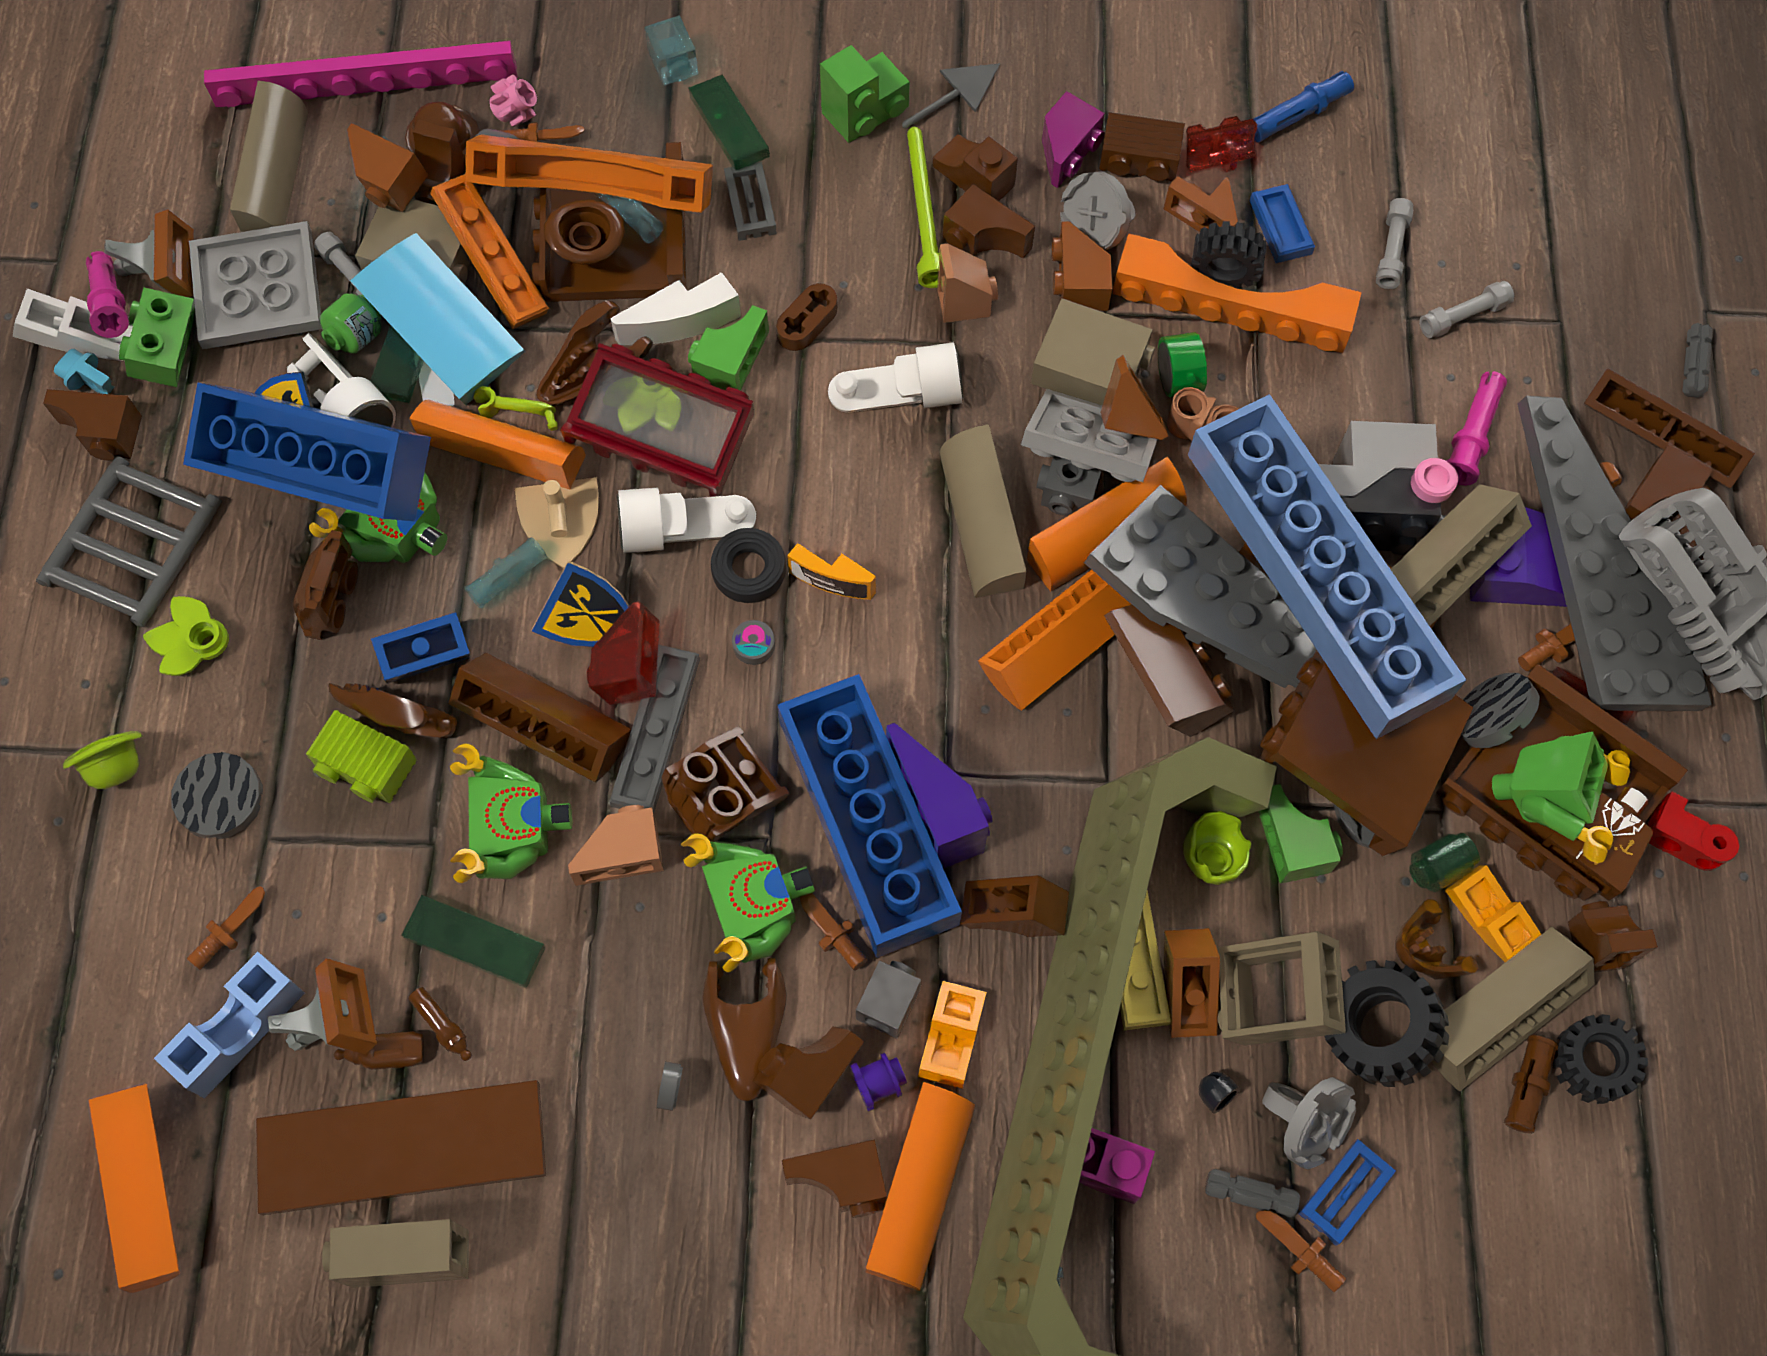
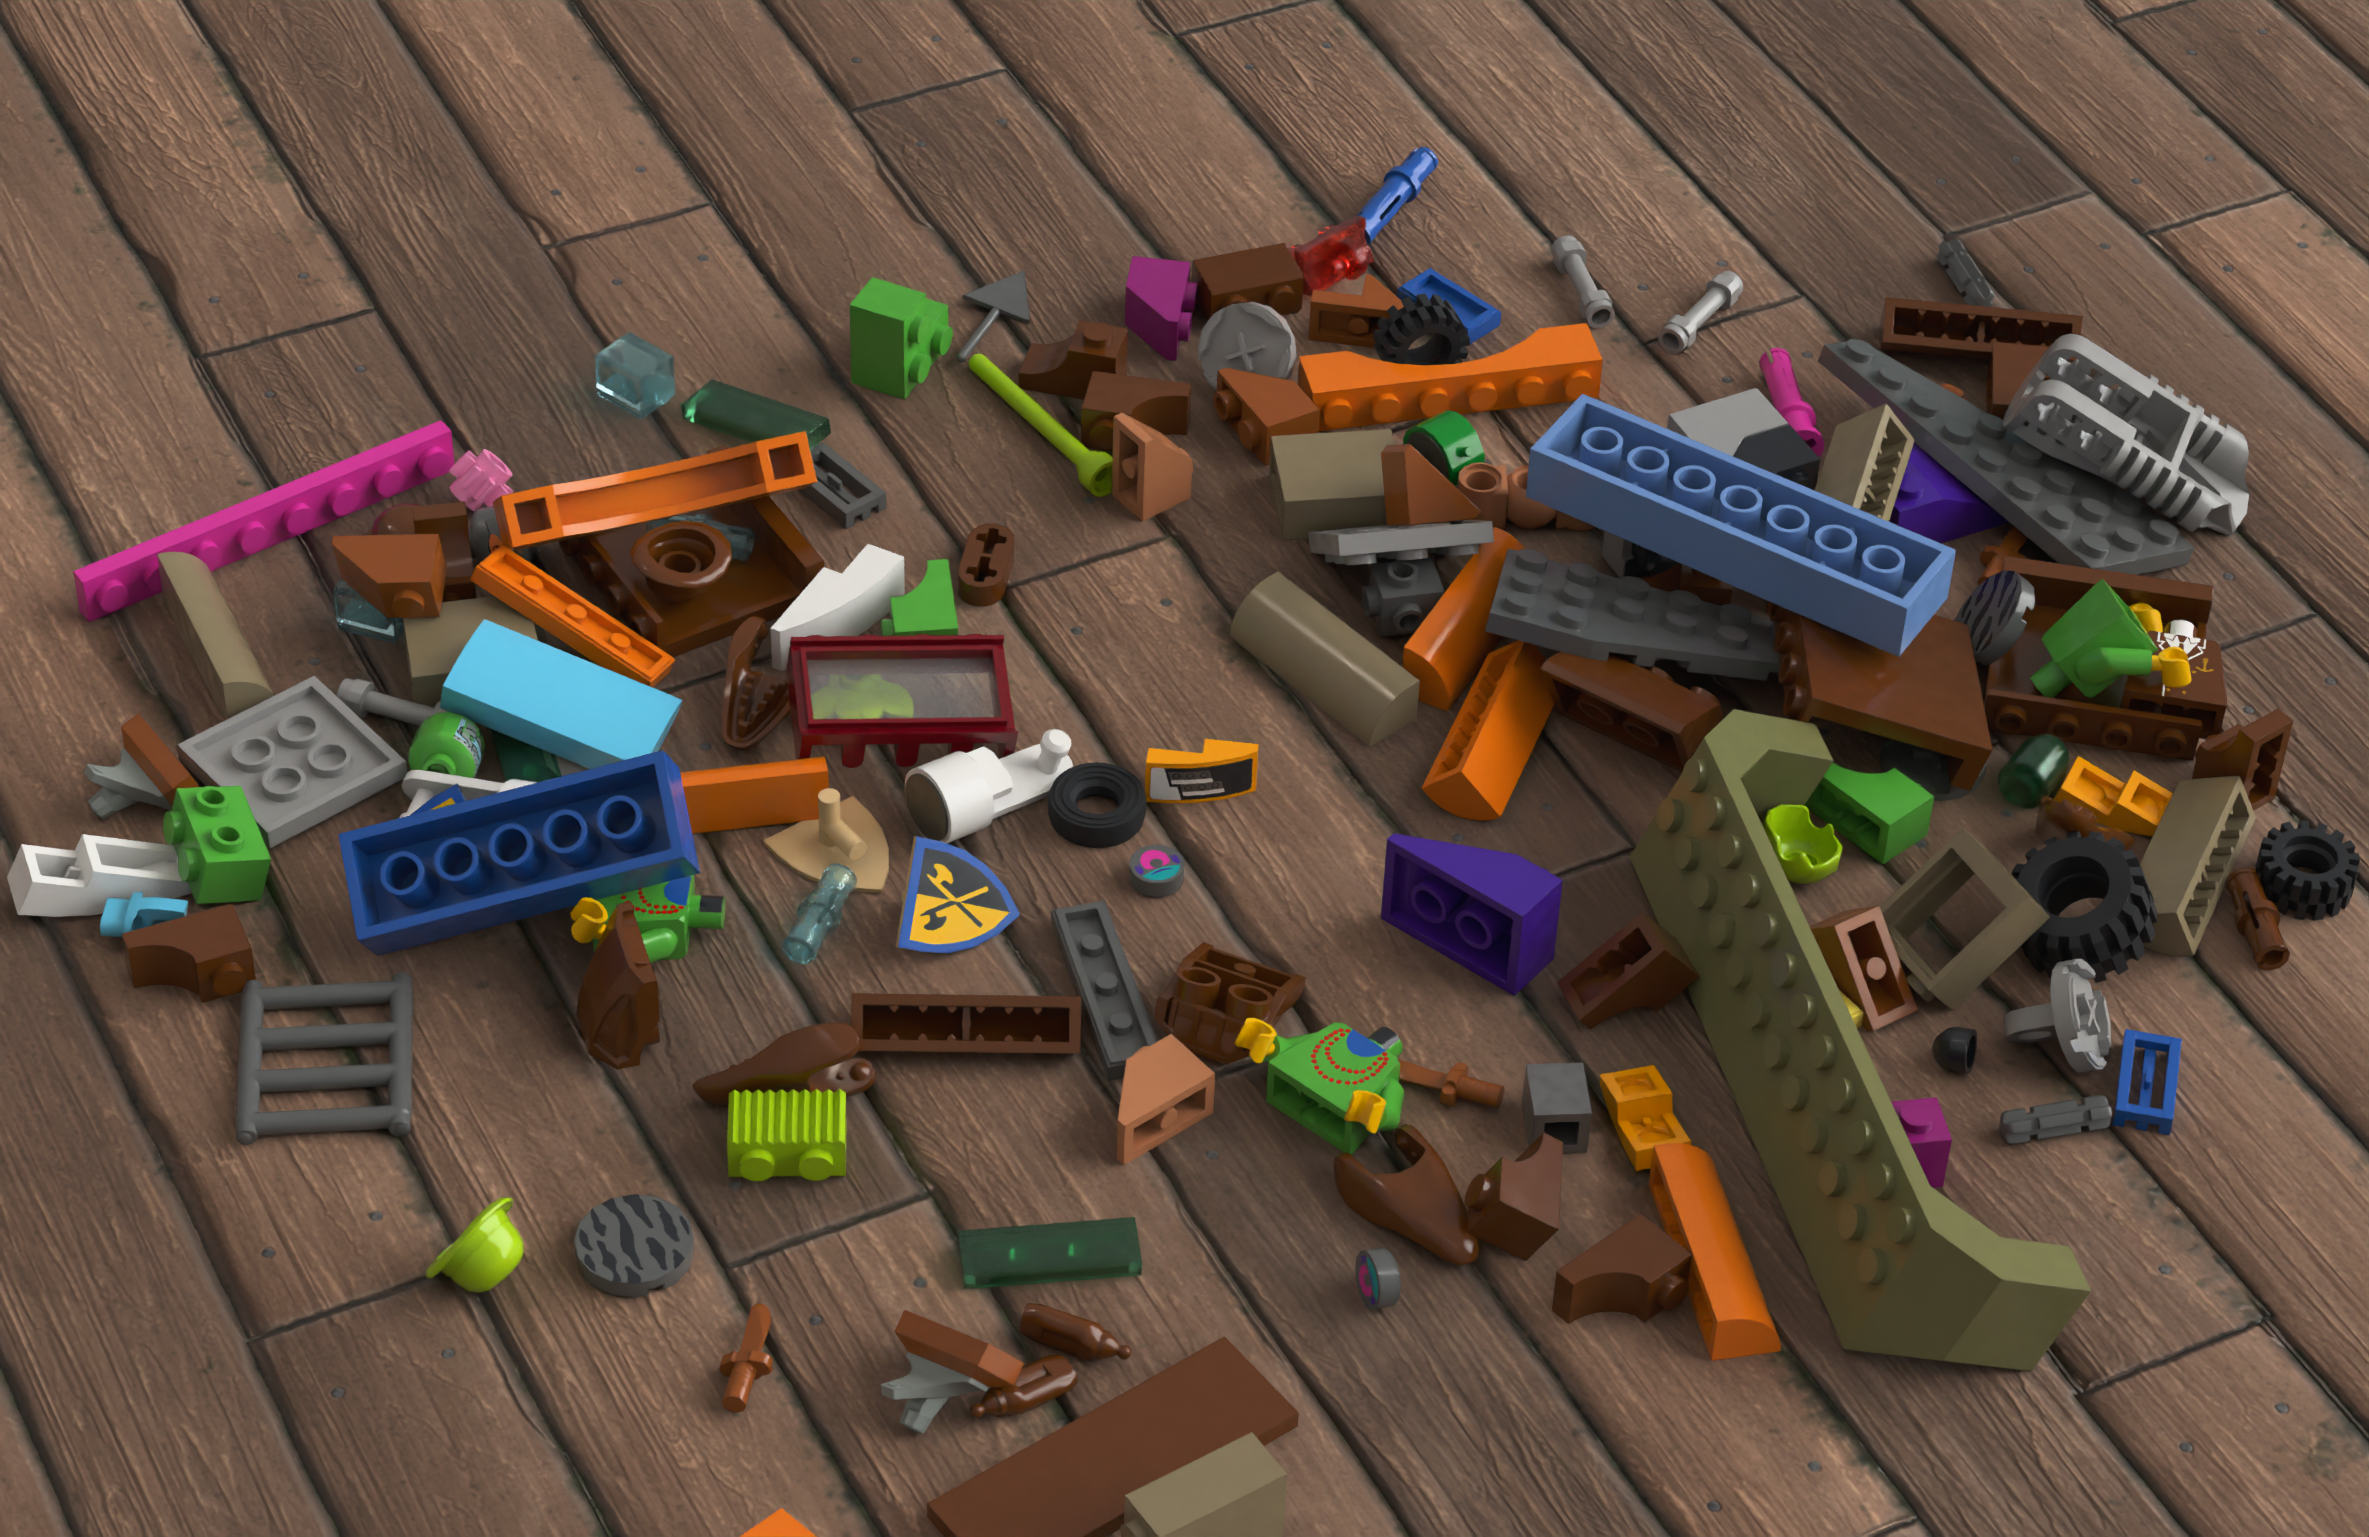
camera: 30 degrees left, 25 degrees down
(105, 300) = (132, 823): dark pink pin -> none
(182, 639) = (476, 1115): lime plate -> none
(207, 1052) = (834, 1438): light blue arch -> none
(420, 648) = (785, 998): blue brick -> none
(505, 818) = (1001, 1117): bright green torso -> none
(515, 404) = (724, 754): lime piece -> none
(626, 657) = (1031, 928): clear red slope -> none
(869, 816) = (1413, 954): blue brick -> none
(878, 1080) = (1598, 1181): dark purple brick -> none
(924, 377) = (1167, 563): white piece -> none
(1308, 1255) = (2150, 1145): dark orange piece -> none
(1434, 480) = (1792, 429): bright pink tile -> none
(1690, 836) = (2260, 659): red leg -> none

